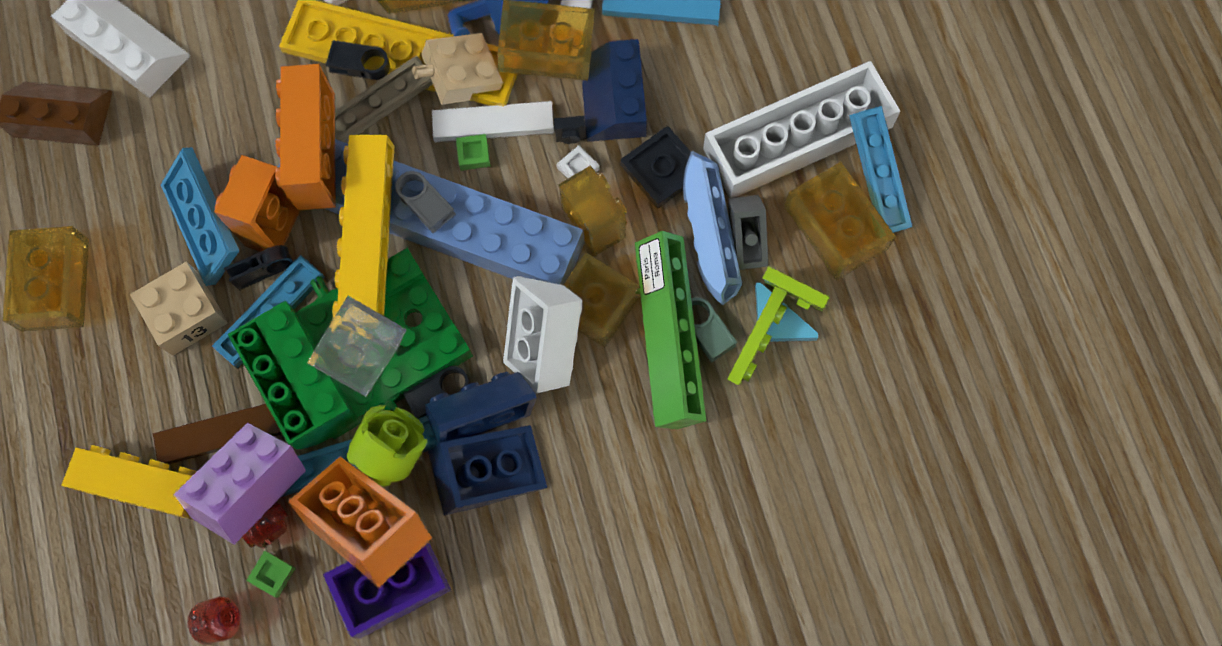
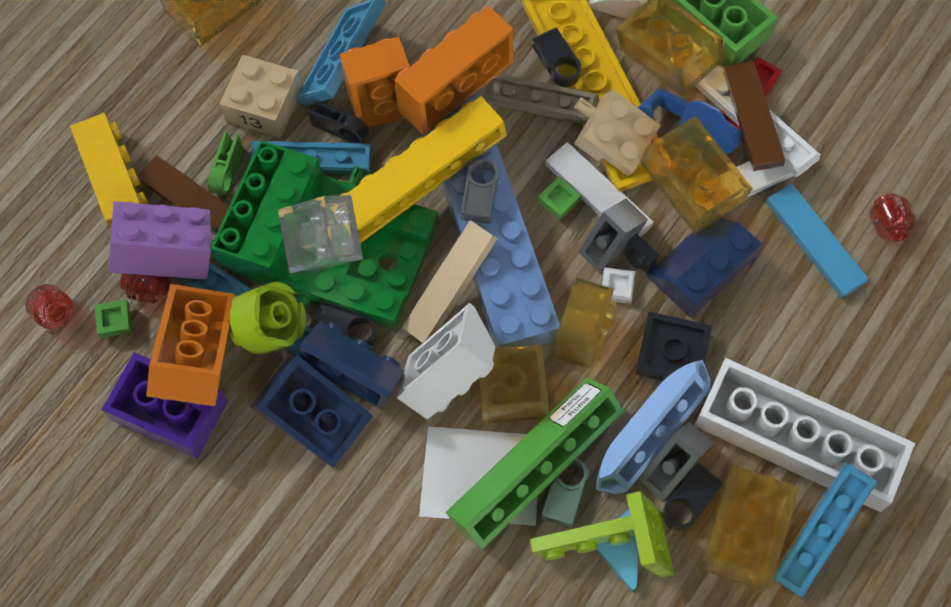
camera: 50 degrees right, 5 degrees down
(214, 383) = (225, 164): none -> bright green piece
(476, 282) = (449, 281): none -> tan tile
(538, 136) = (611, 234): none -> dark grey slope
(622, 389) = (457, 462): none -> white sticker
(783, 238) = (695, 492): none -> black piece

